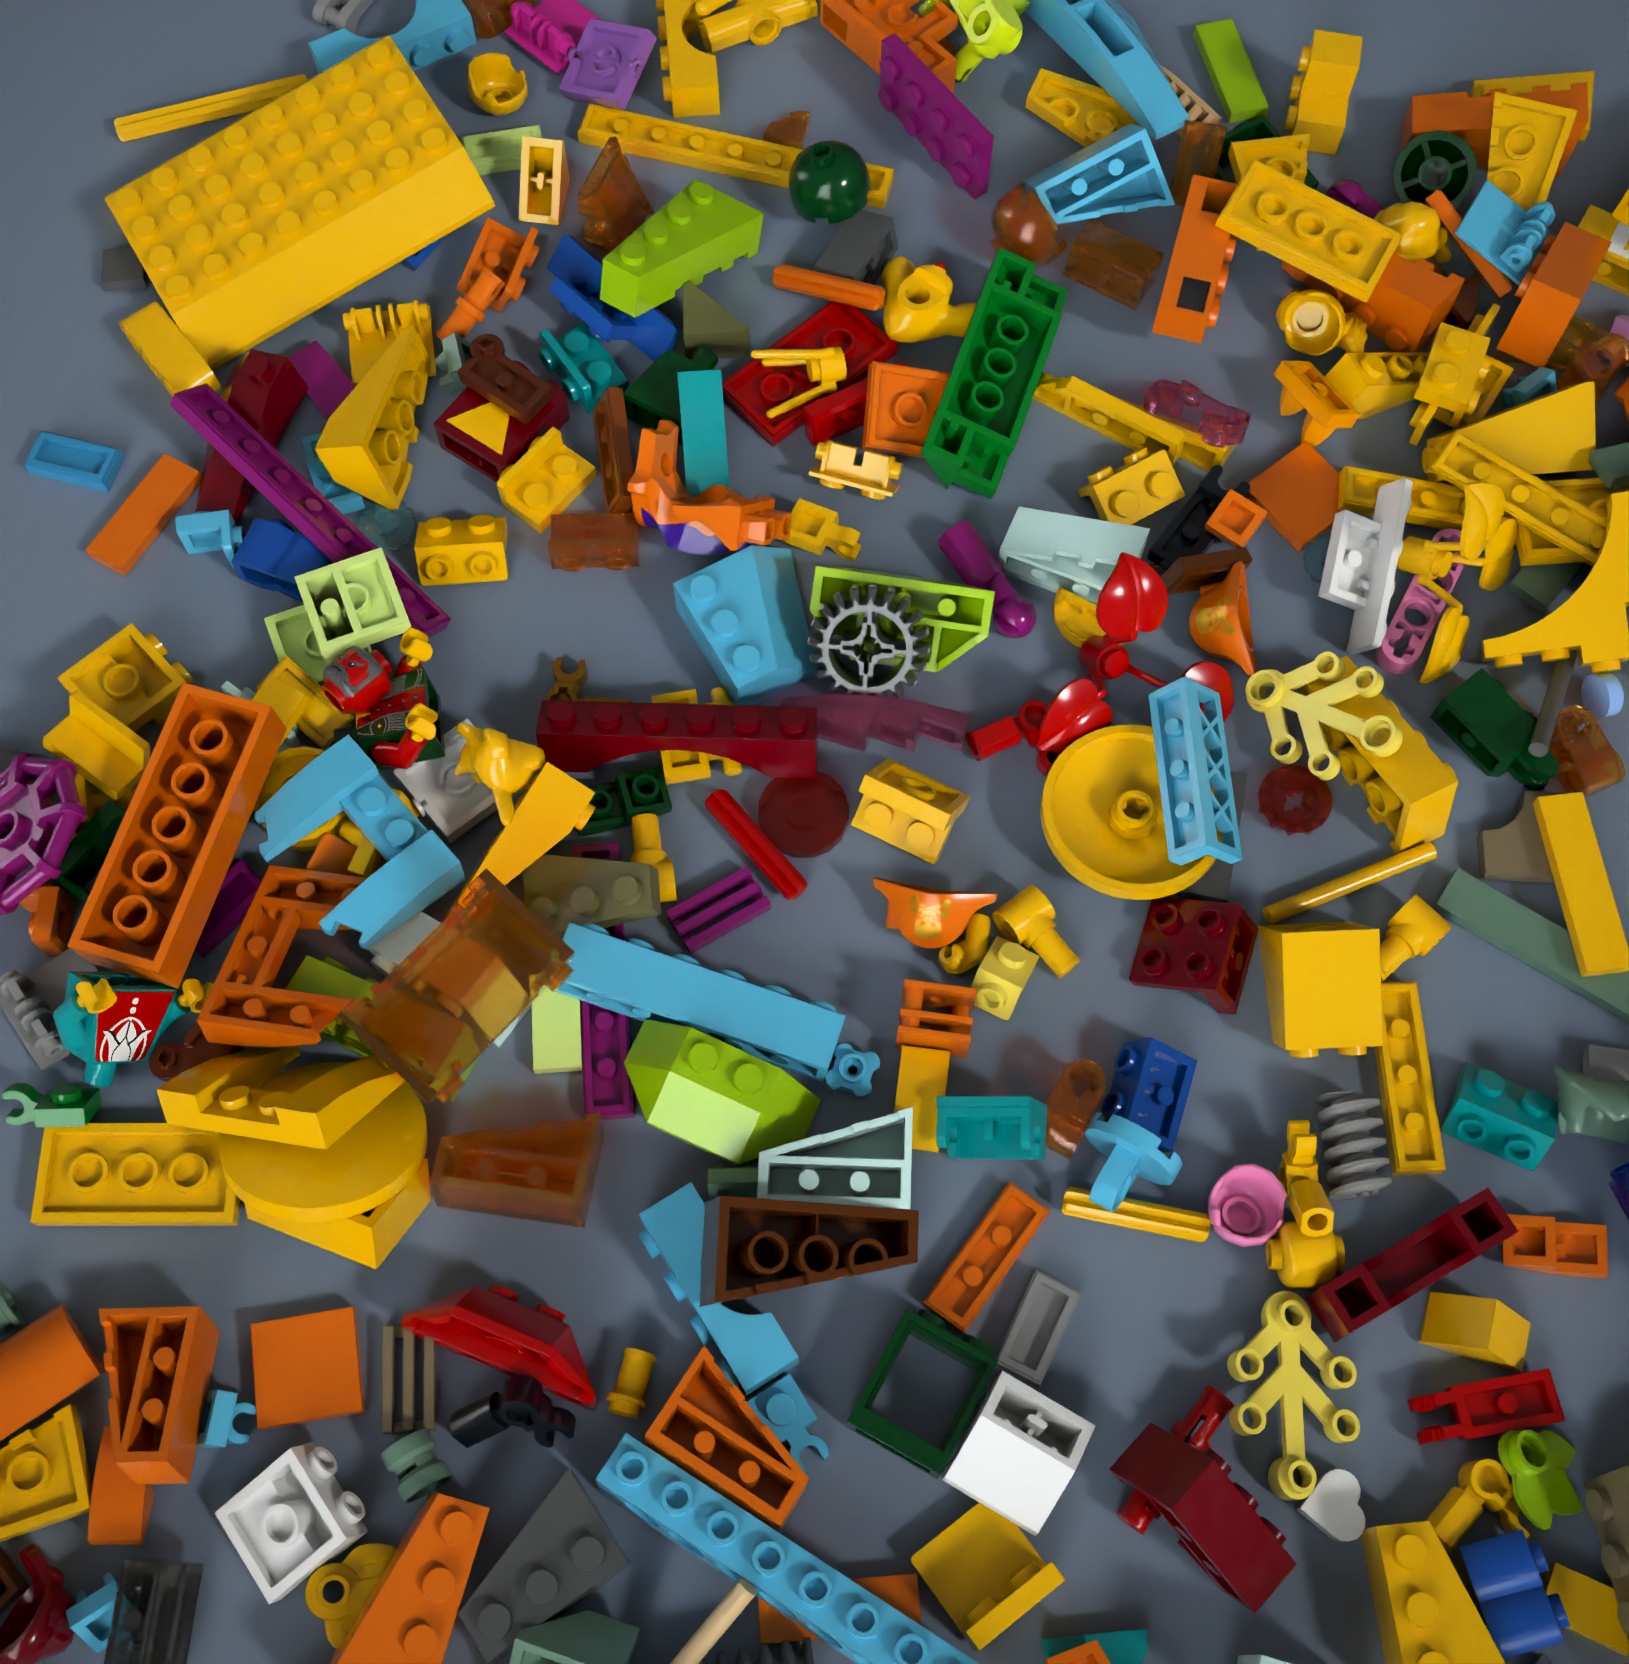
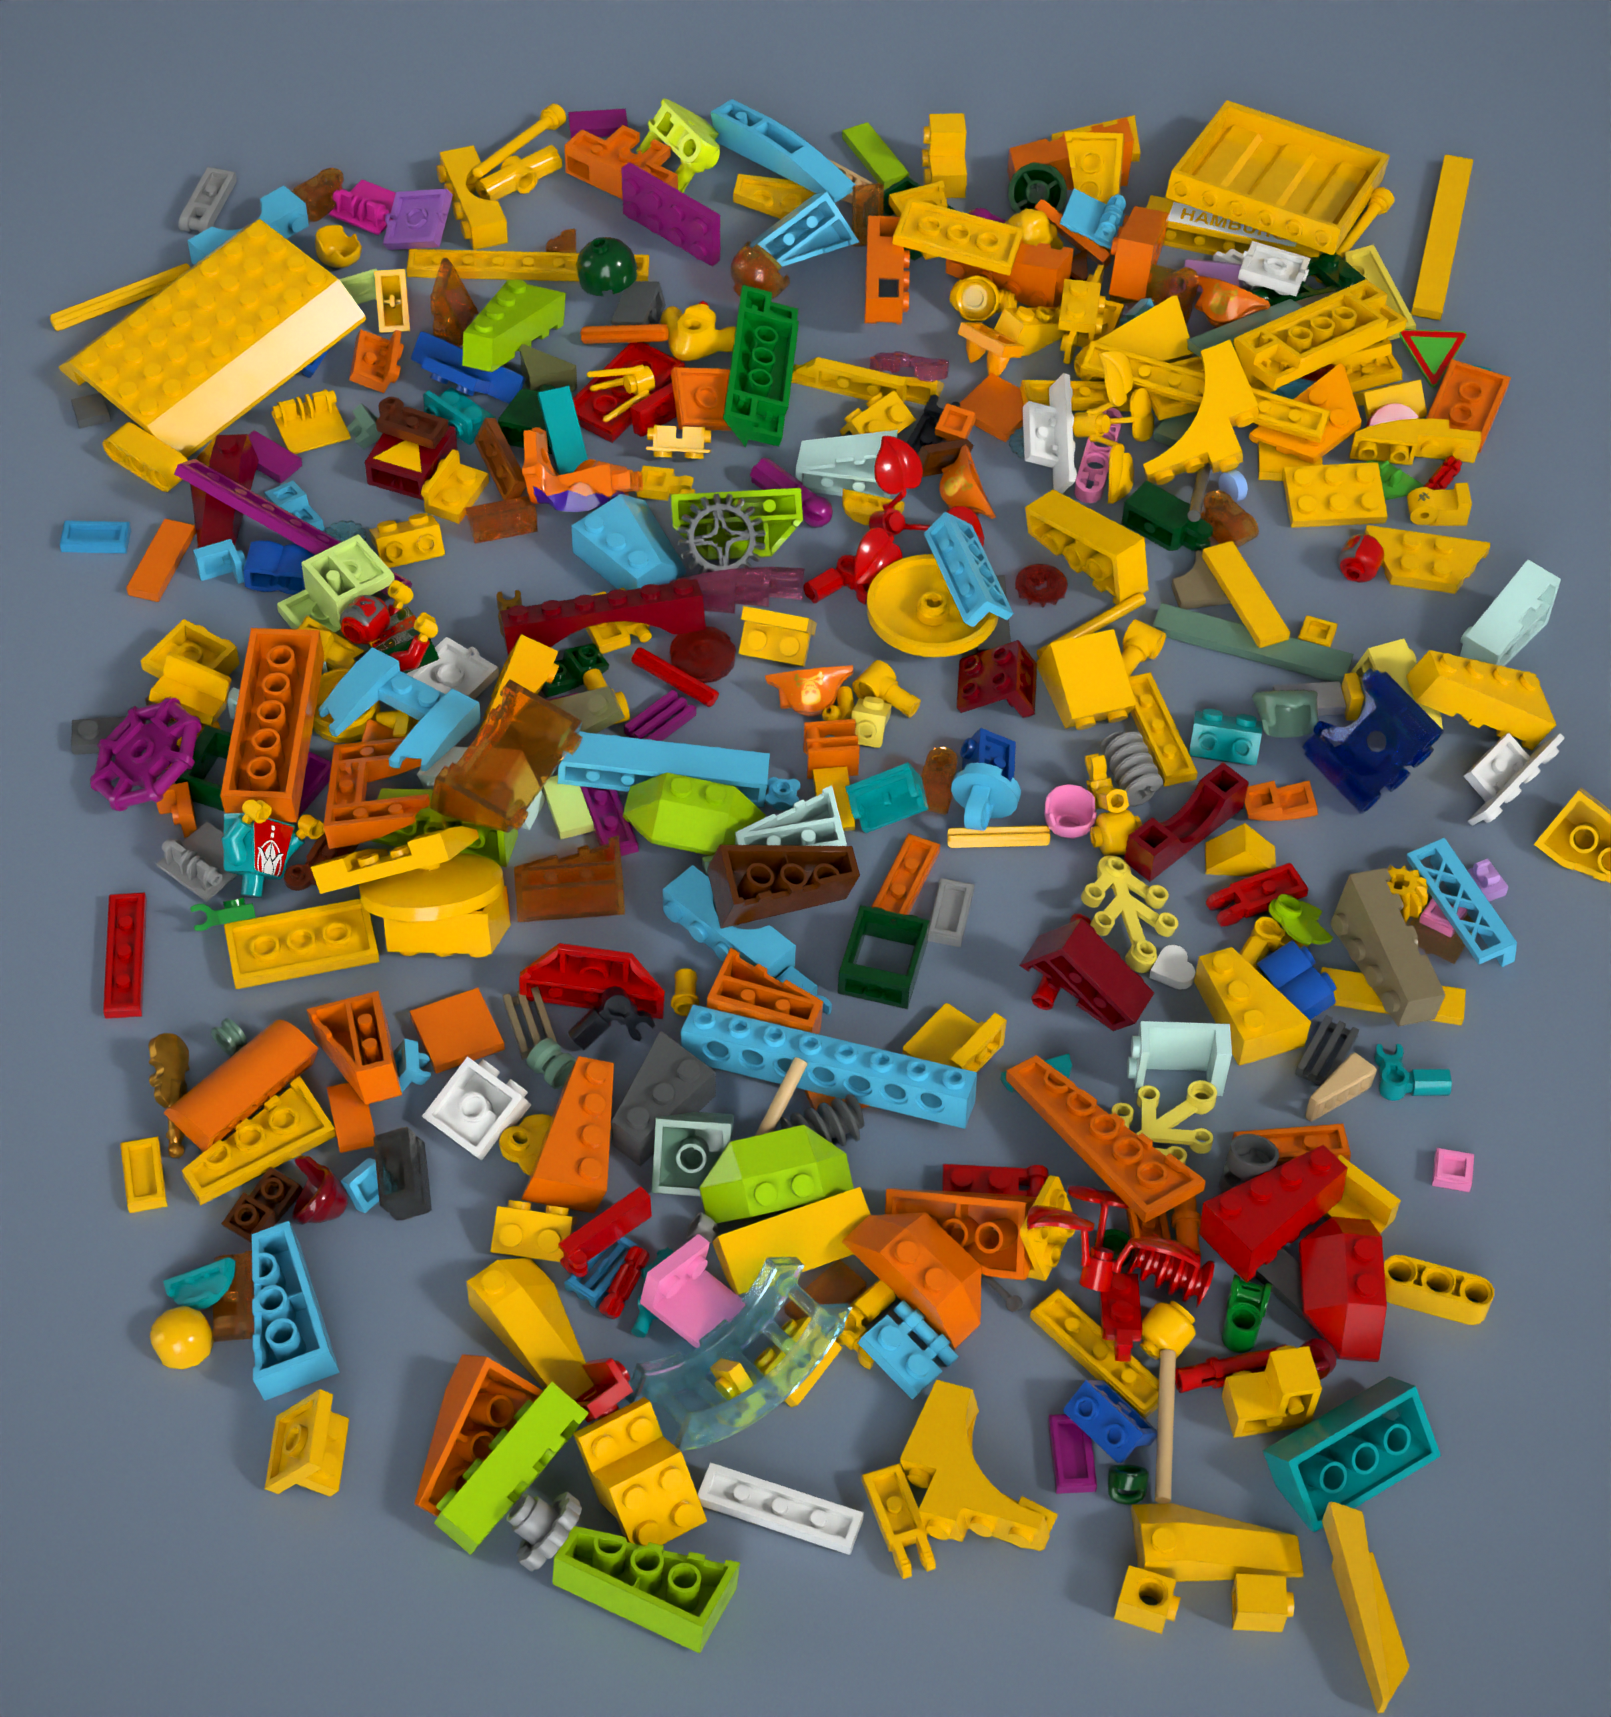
camera: 15 degrees left, 15 degrees down
(372, 428) = (320, 470): yellow wedge -> none
(472, 306) = (367, 387): orange pin -> none
(498, 763) = (482, 644): yellow animal -> none
(1019, 1453) = (957, 968): white slope -> none
(1112, 264) = (824, 288): clear orange hinge -> none
(1318, 709) = (1007, 522): light yellow plant -> none

